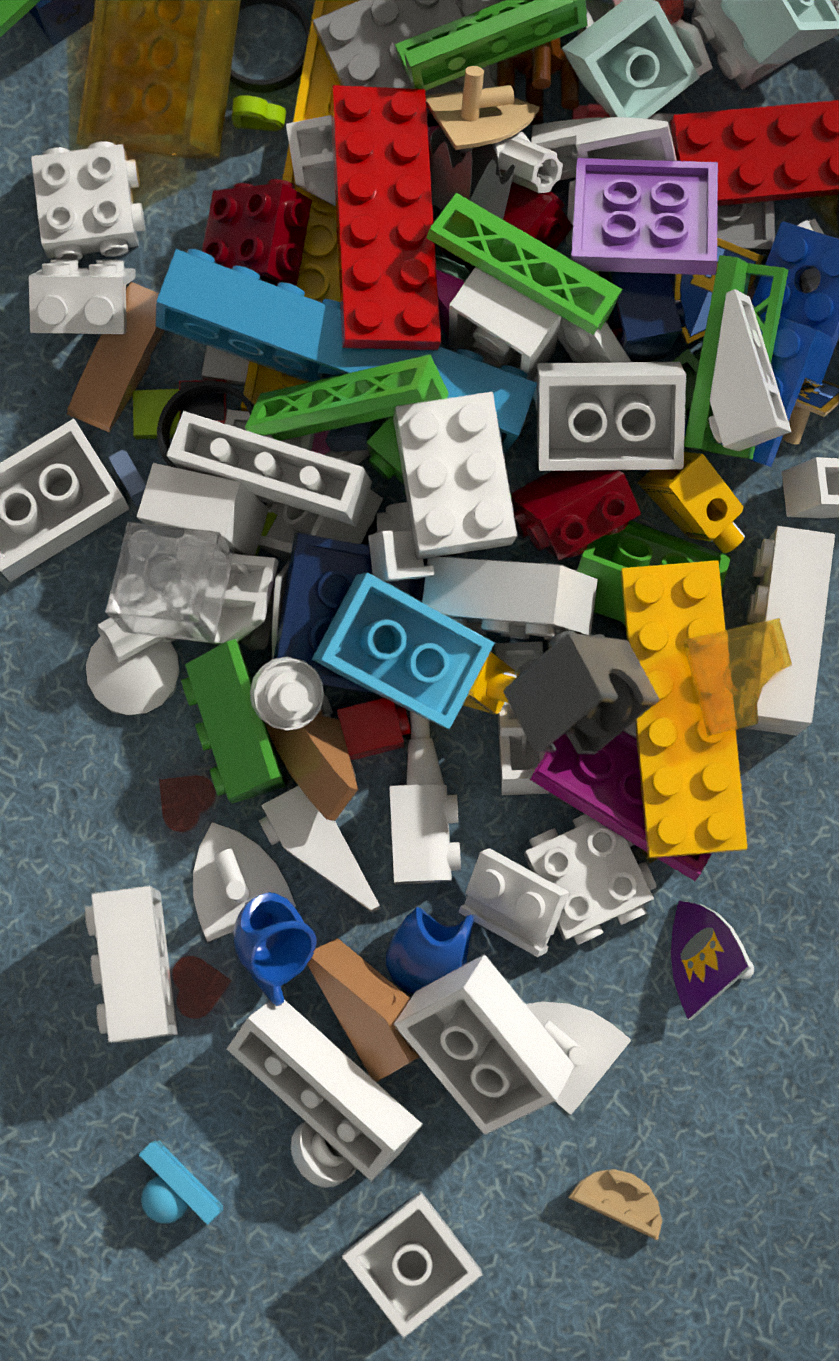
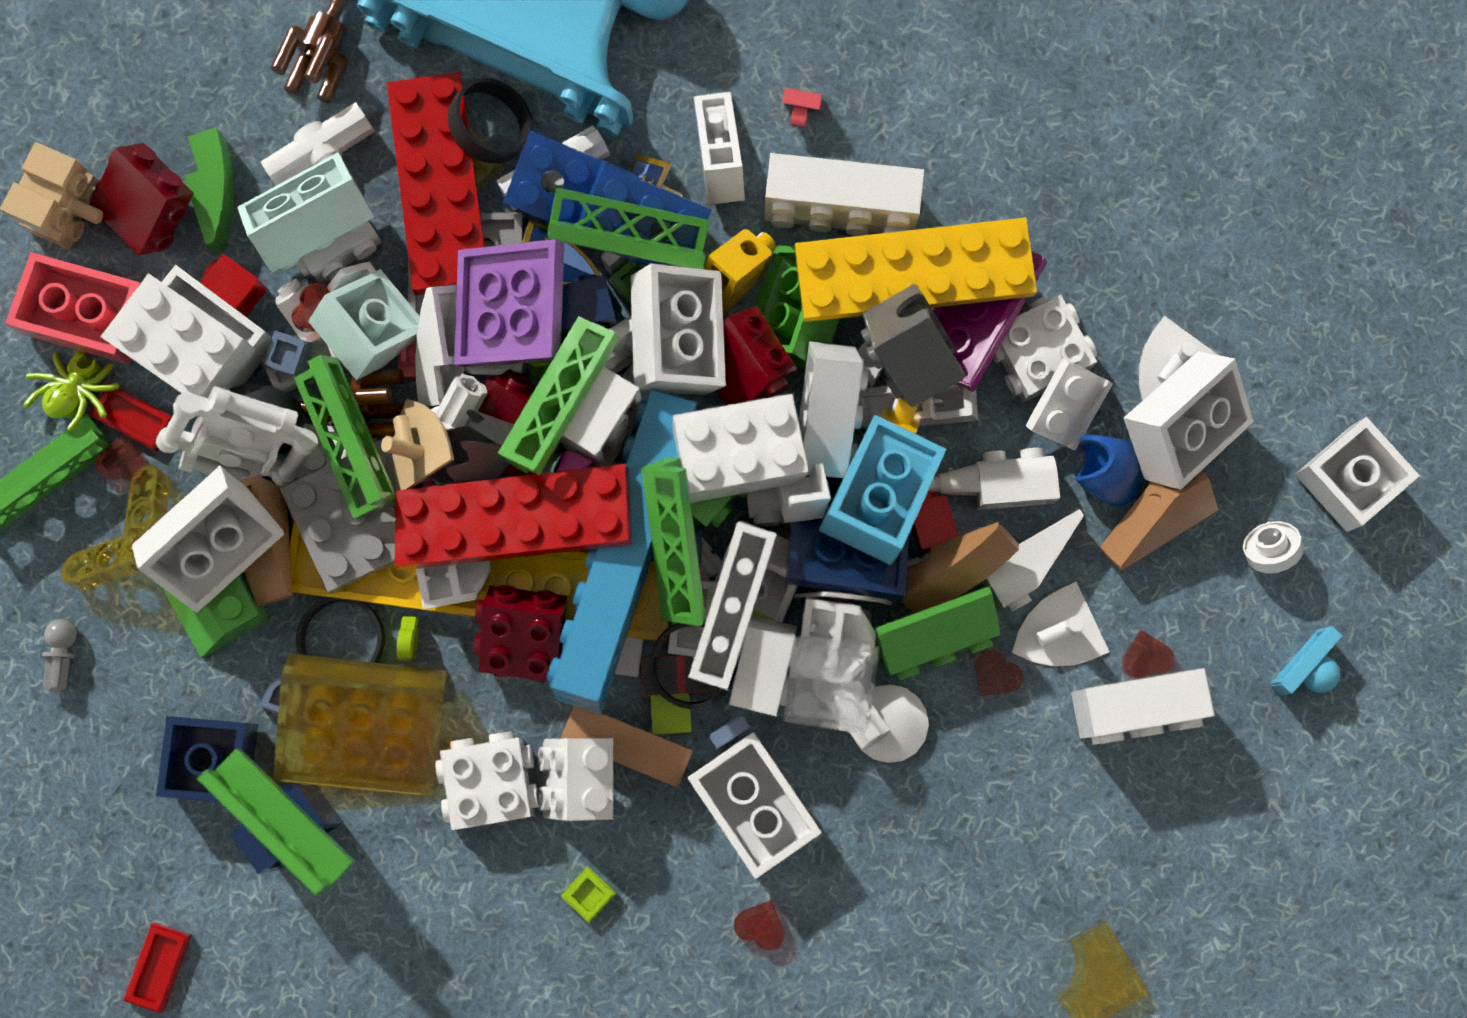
camera: 90 degrees left, 0 degrees up
(272, 943) = (1114, 593): blue piece -> none
(287, 693) = (922, 582): white plate -> none
(324, 1087) = (1227, 547): white brick -> none
(621, 1198) = (1289, 320): tan plate -> none
(705, 956) = (1101, 257): dark purple shield -> none
(733, 669) = (888, 227): clear yellow tile -> none
(743, 385) = (658, 219): white slope -> none

